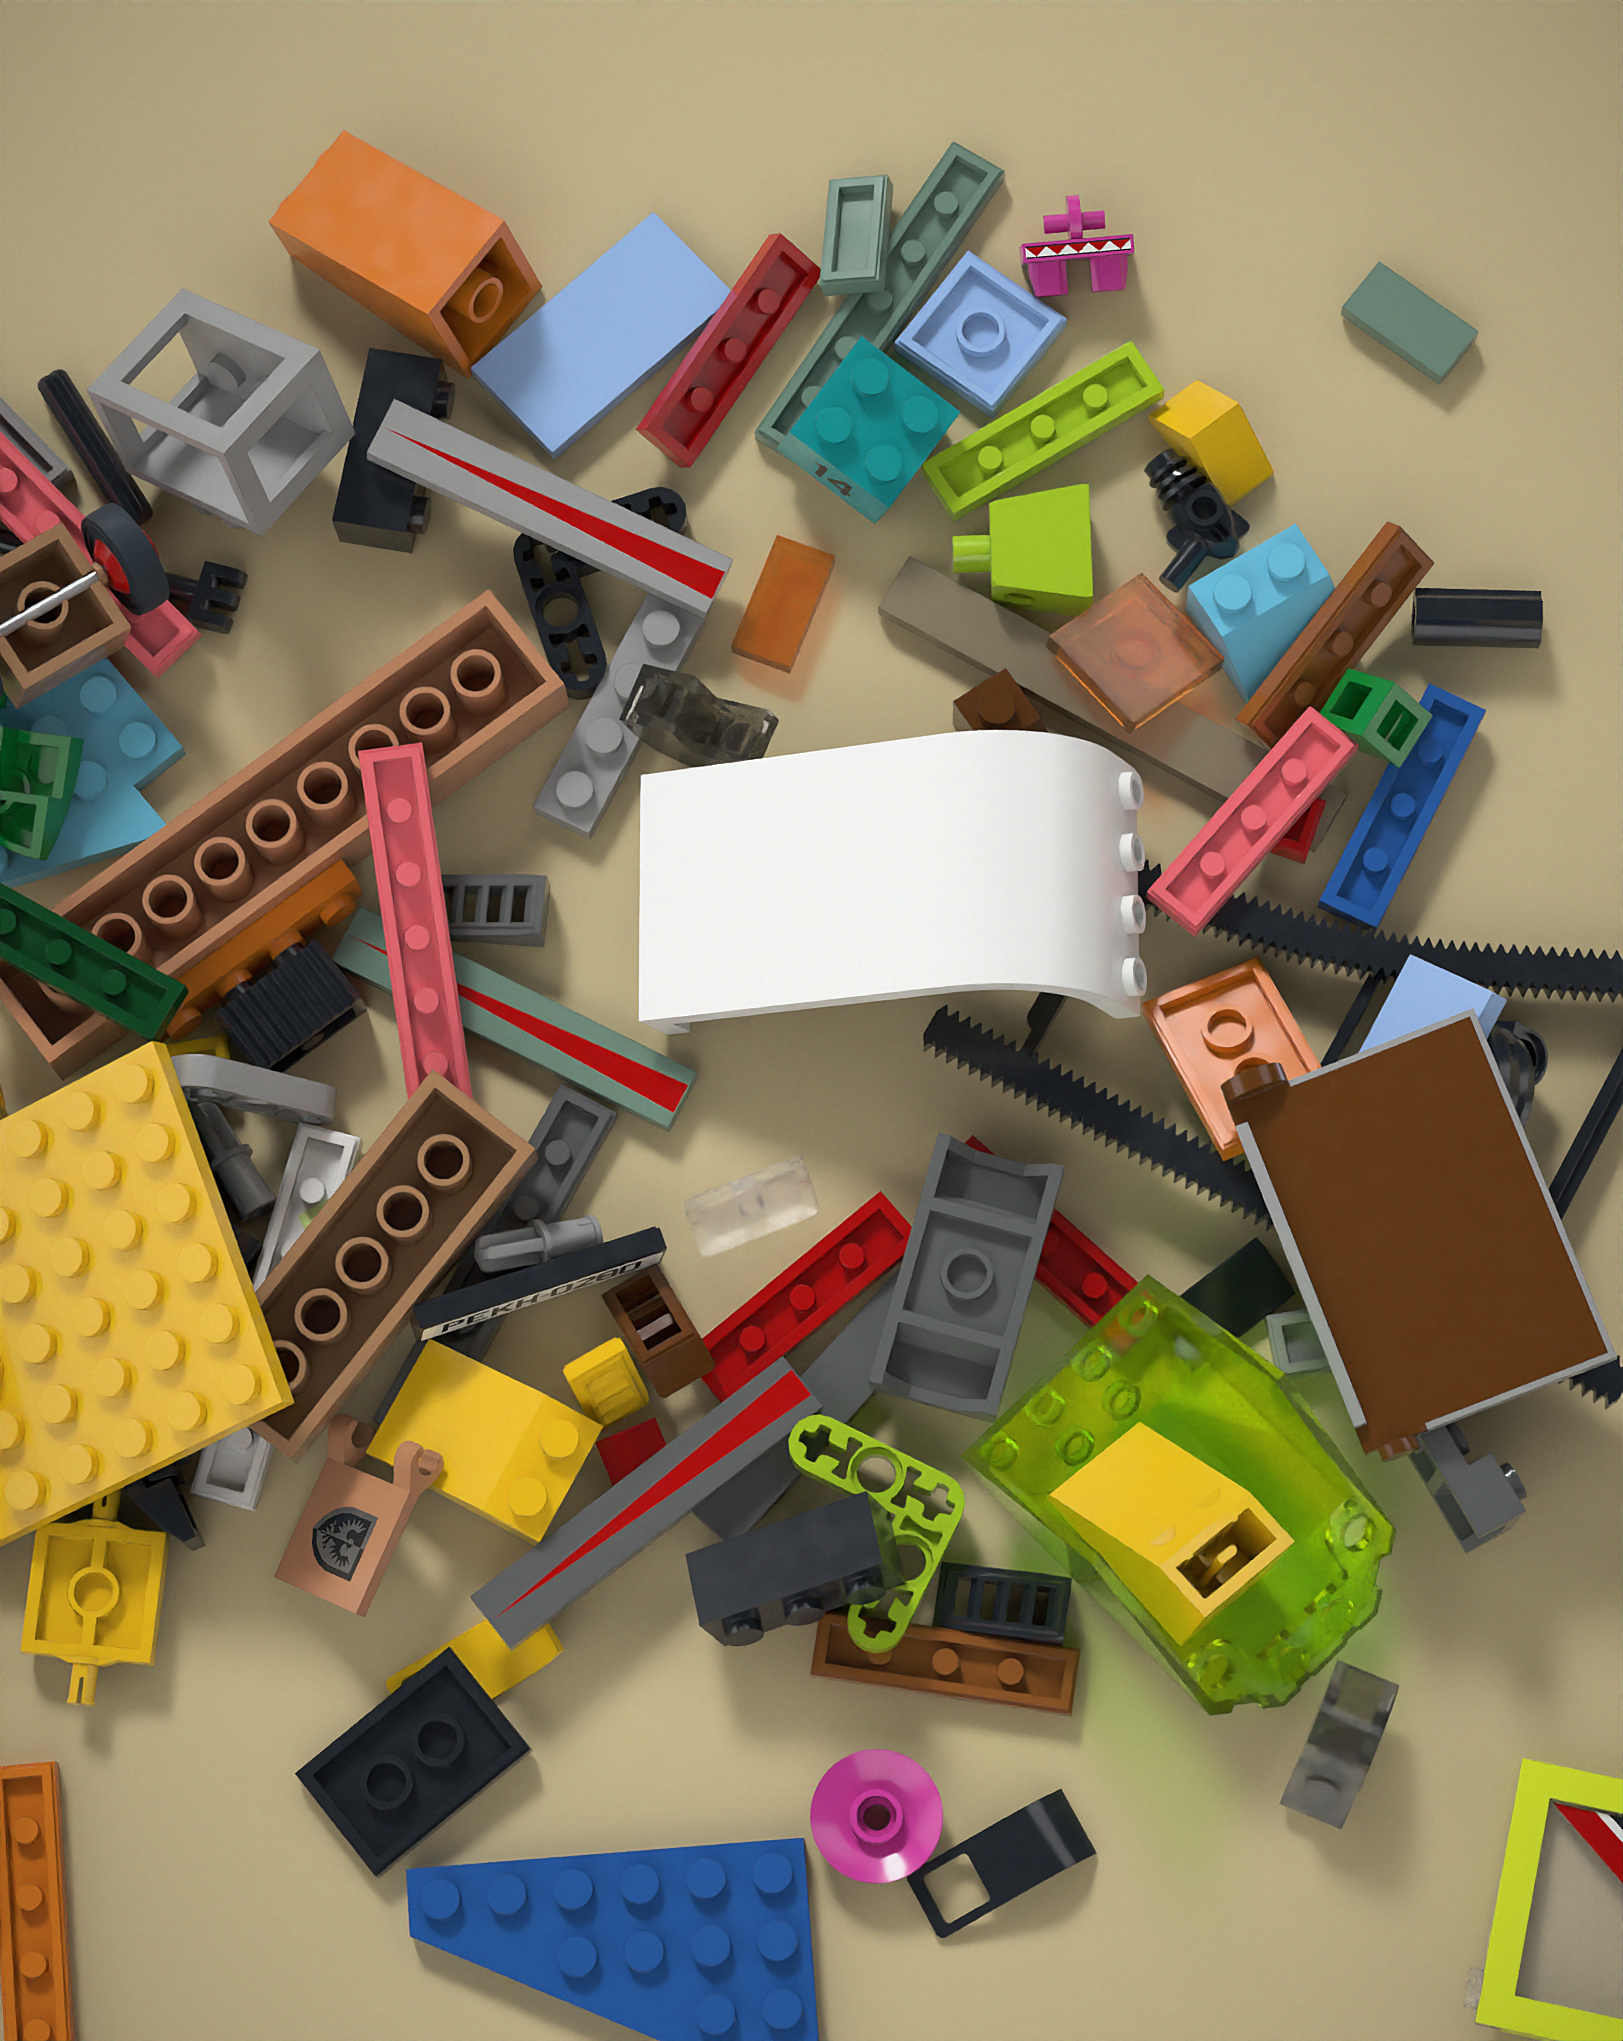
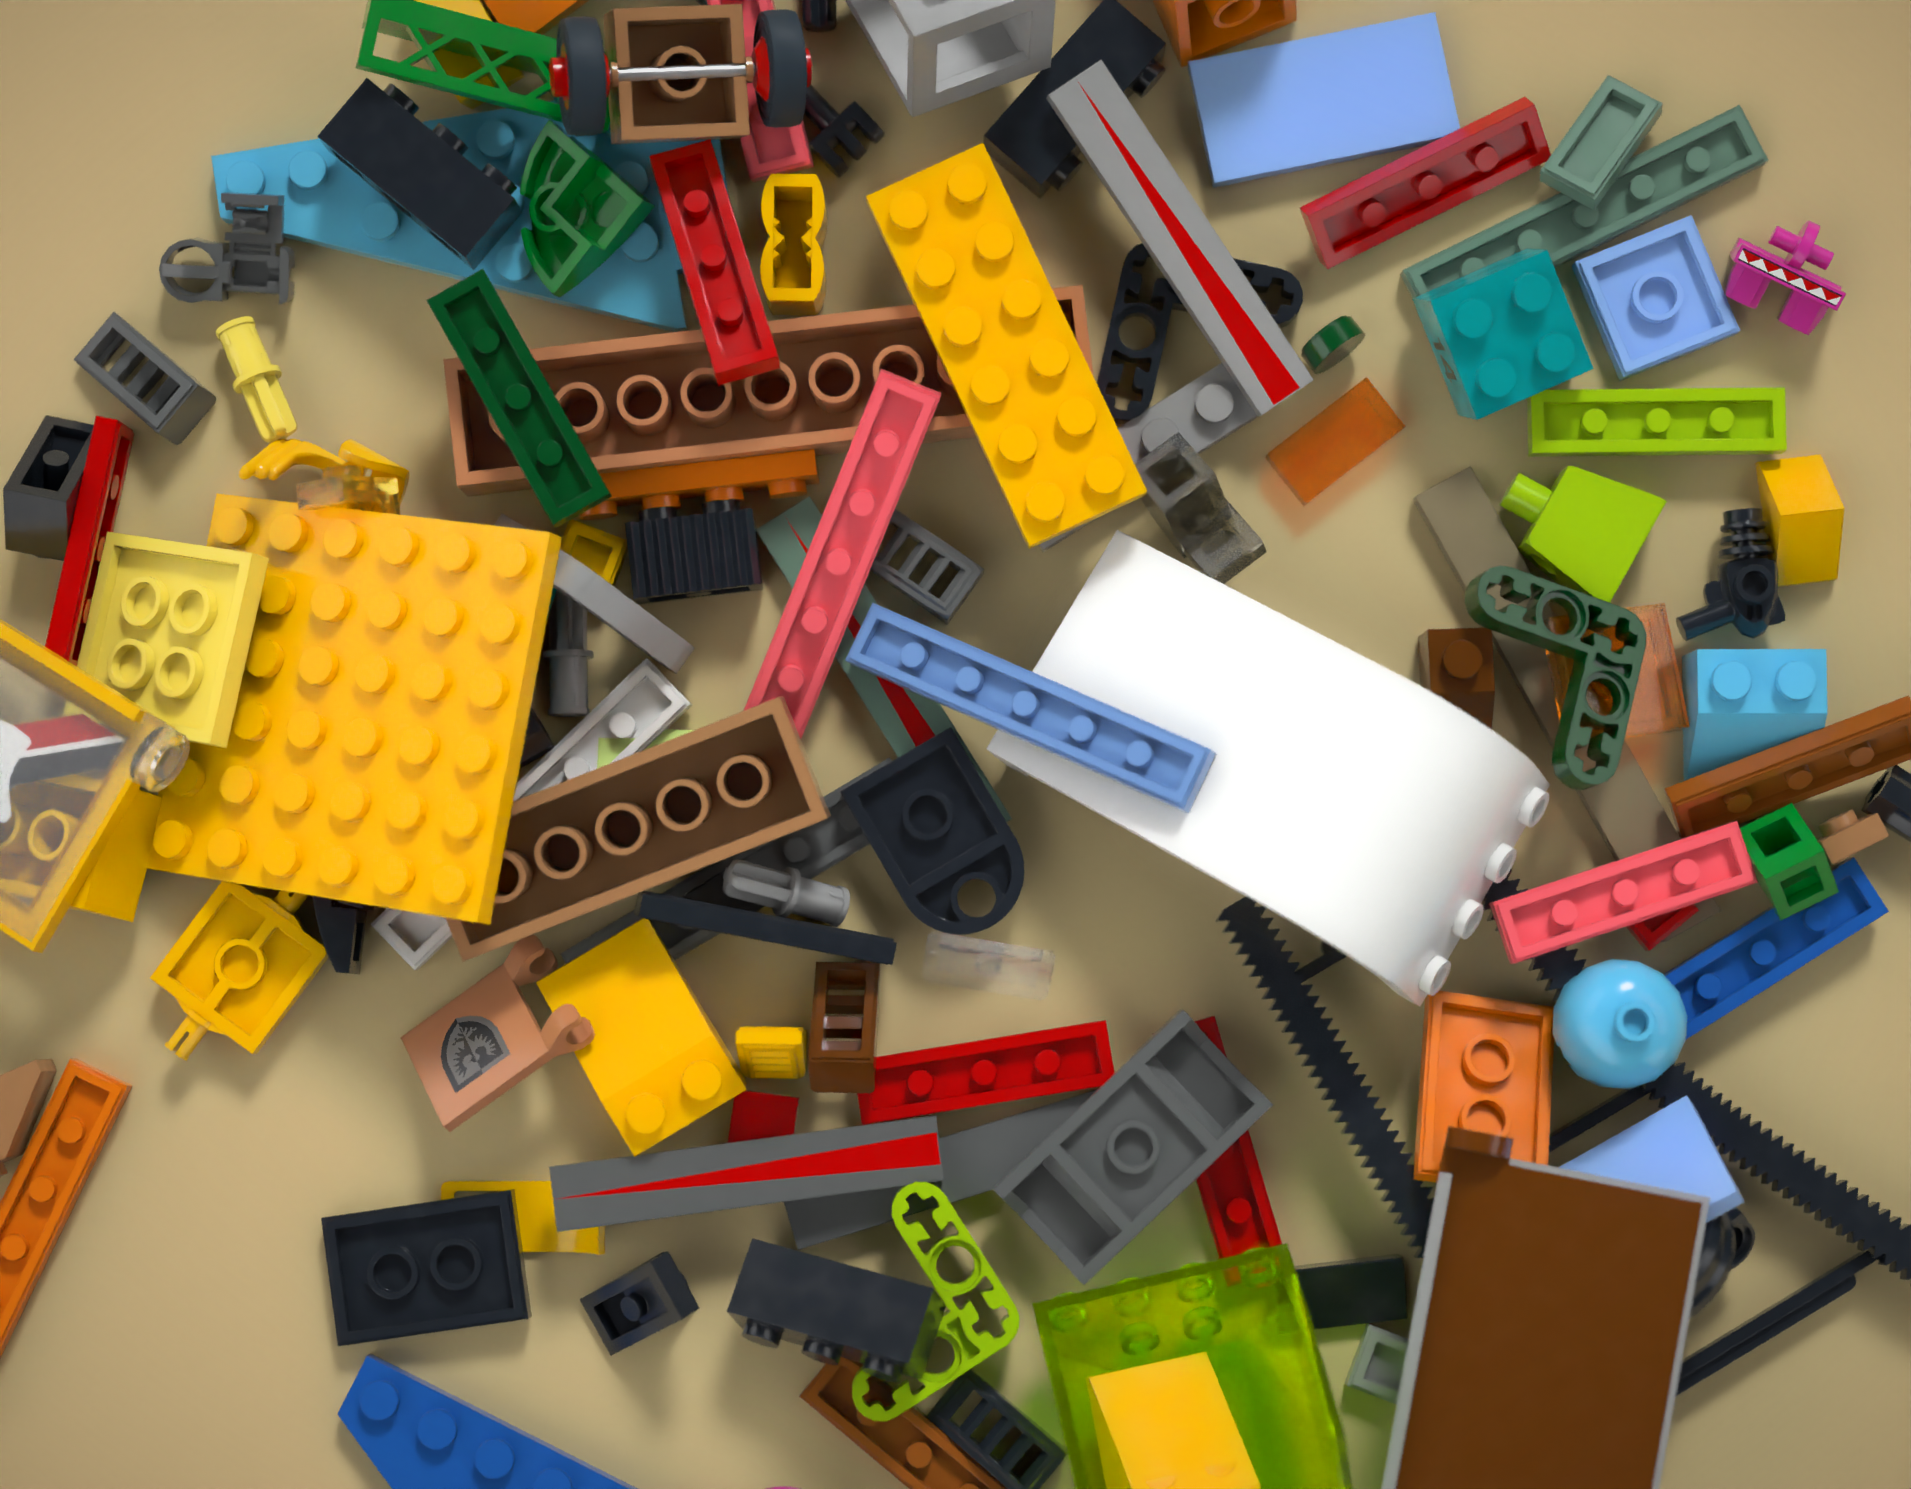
camera: 25 degrees right, 10 degrees up
(163, 749) = (714, 262): none -> red plate
(221, 700) = (795, 230): none -> yellow brick
(454, 674) = (1006, 345): none -> yellow plate
(621, 1673) = (640, 1303): none -> black slope
(639, 1118) = (938, 831): none -> black tile
(654, 957) = (1031, 707): none -> medium blue tile
(731, 524) = (1332, 344): none -> dark green tile
(1104, 643) = (1591, 657): none -> dark green beam
(1317, 929) = (1619, 1024): none -> medium azure cylinder
(1415, 667) = (1847, 834): none -> medium nougat plate

